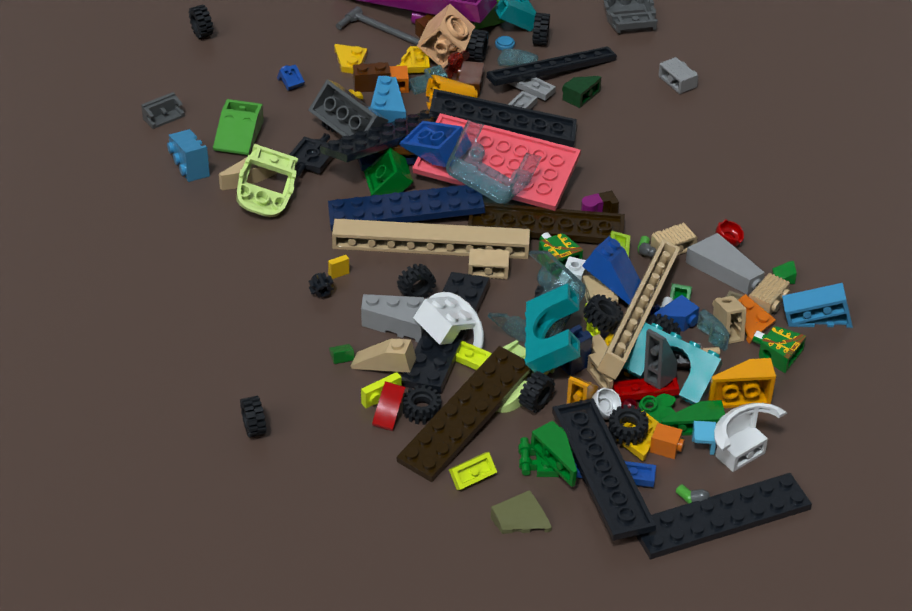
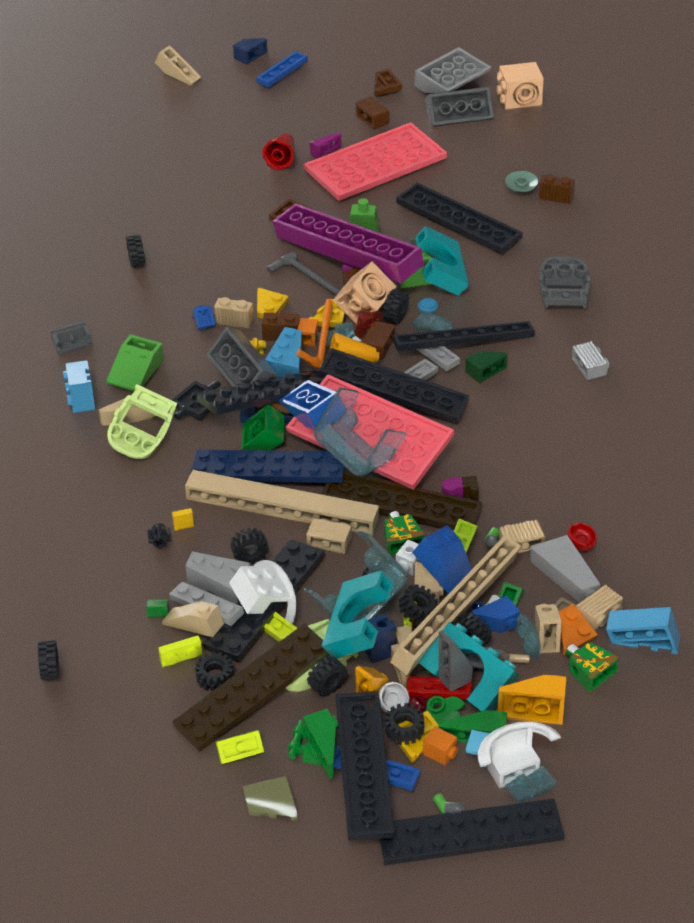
camera: 15 degrees right, 0 degrees up
(319, 69) = (233, 312): none -> tan brick
(368, 337) = (188, 594): none -> light grey plate
(388, 406) = (180, 668): red slope -> none
(419, 104) = (316, 362): none -> orange bar
(541, 28) = (465, 295): black tyre -> none
(764, 464) = (531, 786): none -> clear light blue slope
(786, 271) = (625, 586): green slope -> none

